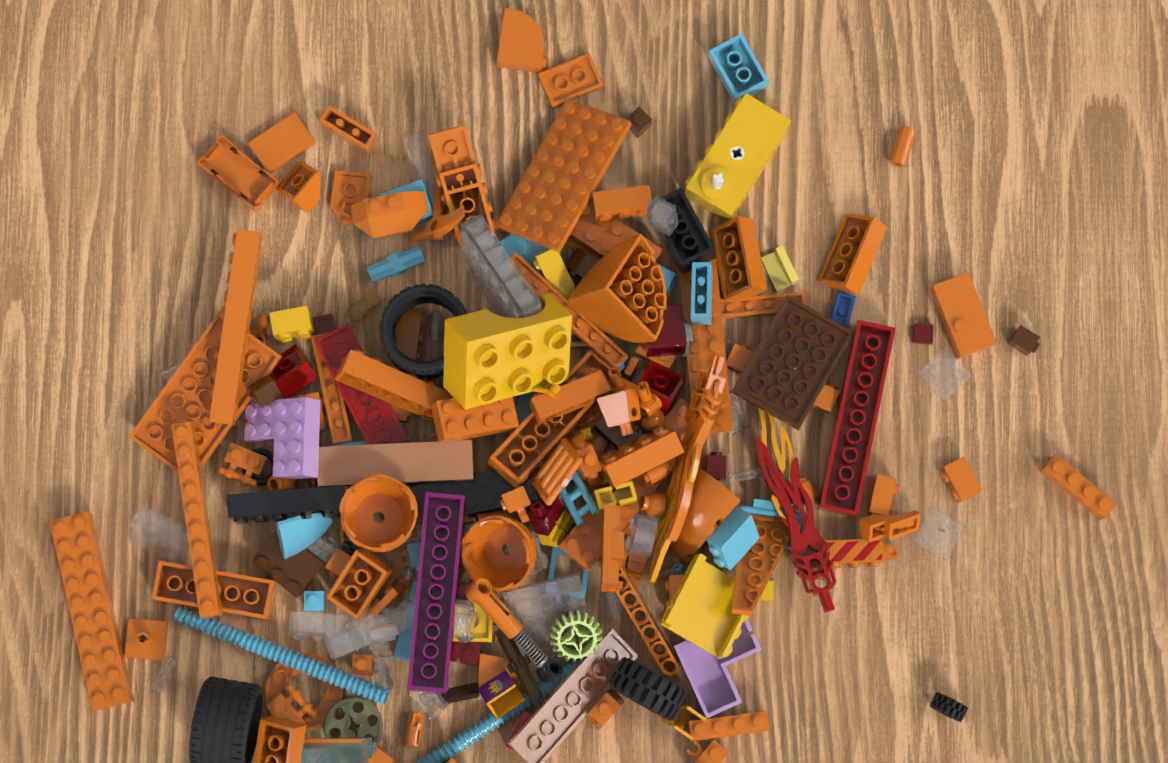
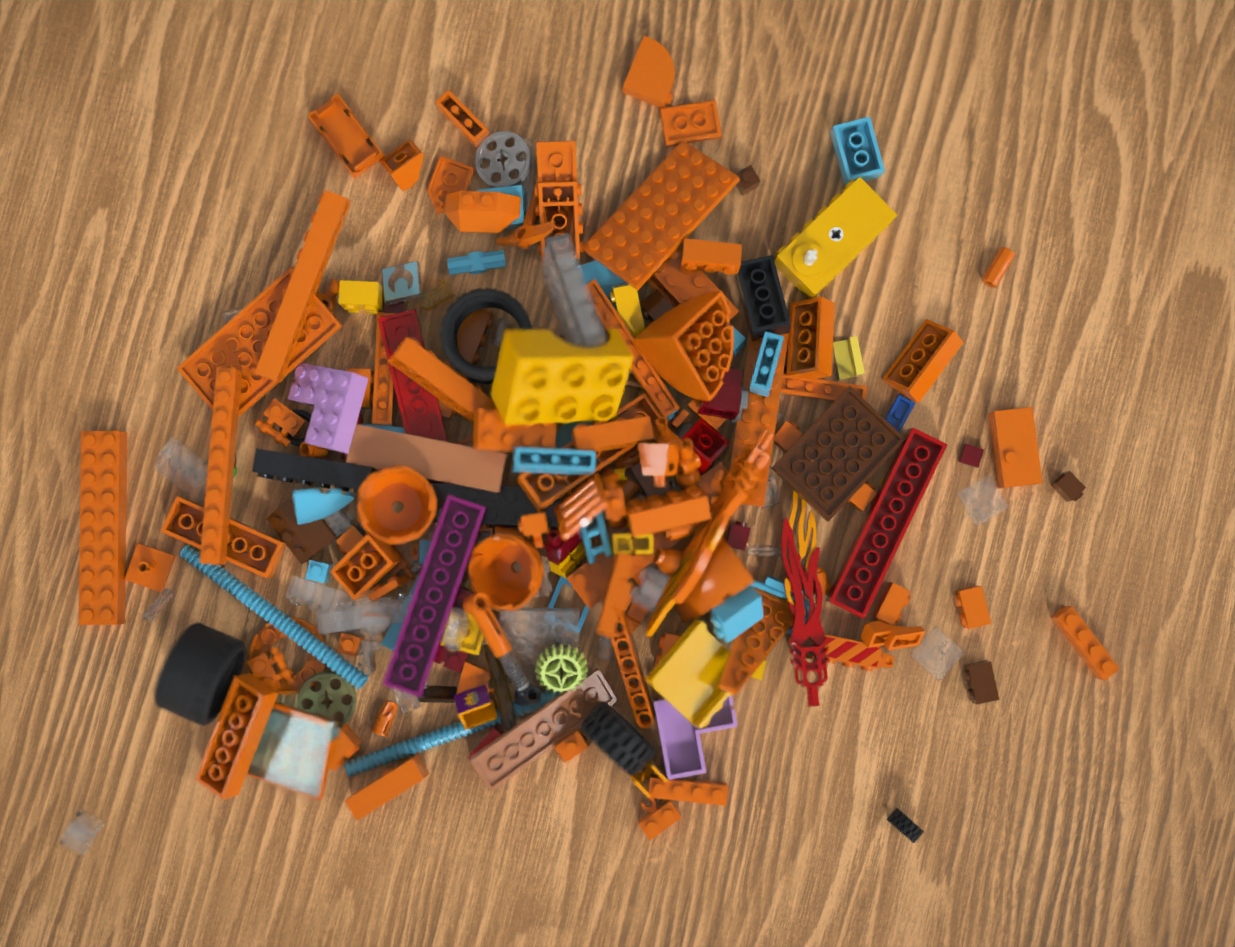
camera: 10 degrees right, 5 degrees up
(264, 391) = (316, 356): reddish brown brick -> none
(282, 142) = (395, 116): orange tile -> none
(292, 372) = (350, 343): red slope -> none
(328, 301) = (402, 282): none -> tile
(390, 156) = (509, 153): none -> light grey wedge
(520, 434) = (553, 461): none -> medium azure brick
(554, 391) = (598, 427): light orange hand -> none
(662, 215) = (747, 278): clear brick -> none
(676, 569) = (672, 626): arm -> none
(987, 550) = (980, 682): none -> reddish brown brick

